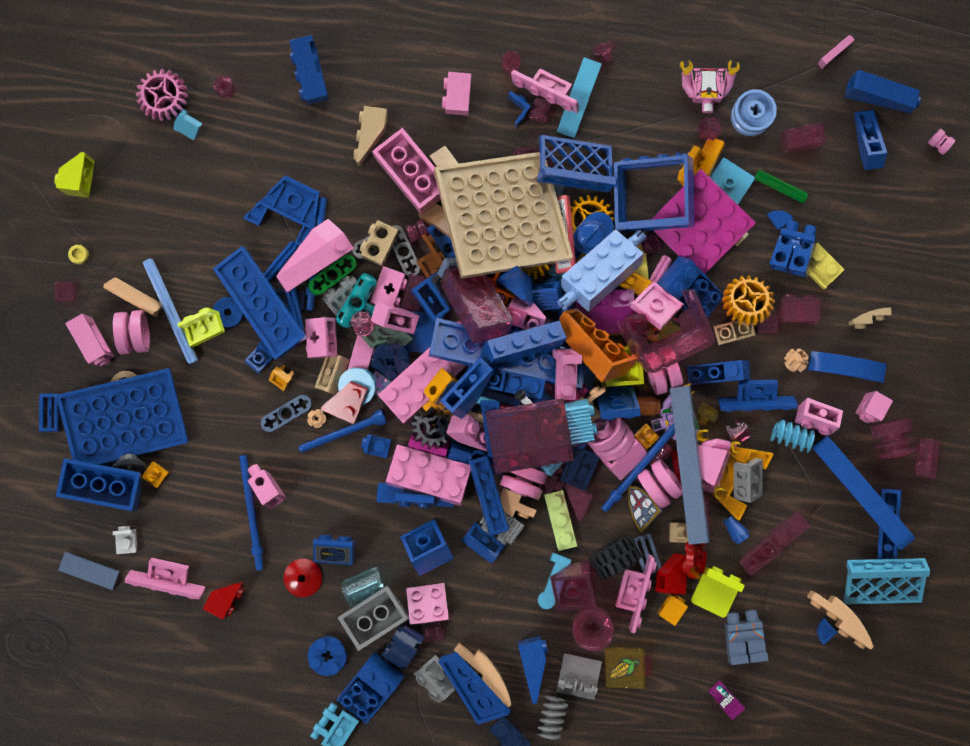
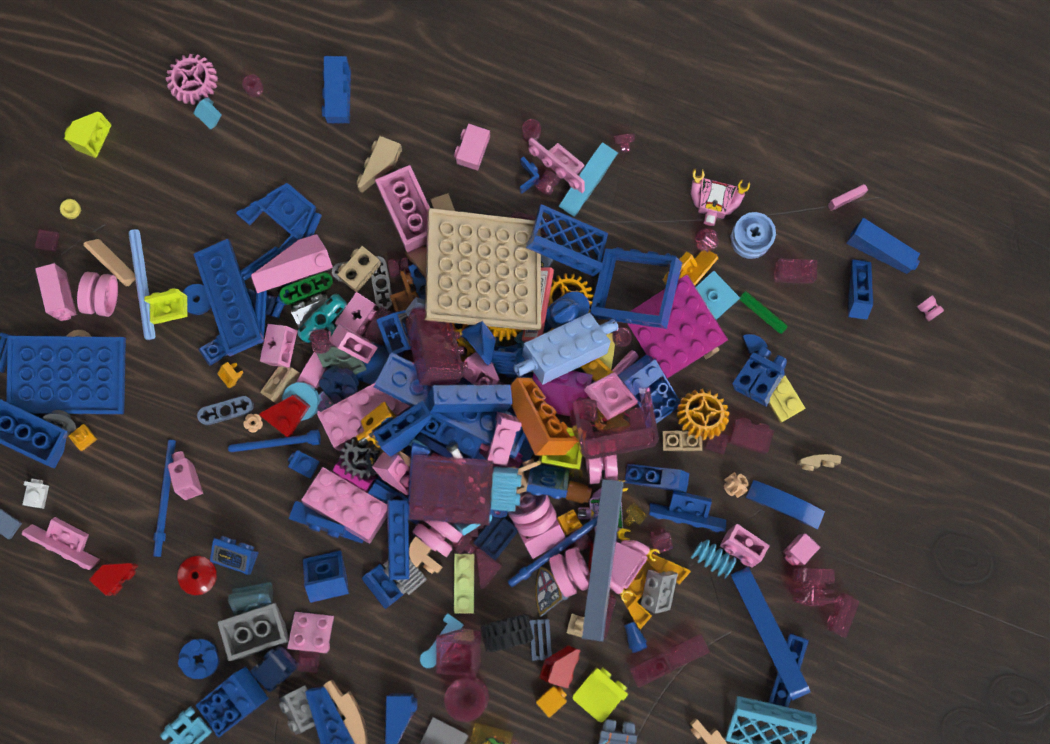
camera: 15 degrees right, 5 degrees down
(633, 591) = (517, 671): bright pink bracket -> none
(695, 560) = (585, 657): red plate -> none

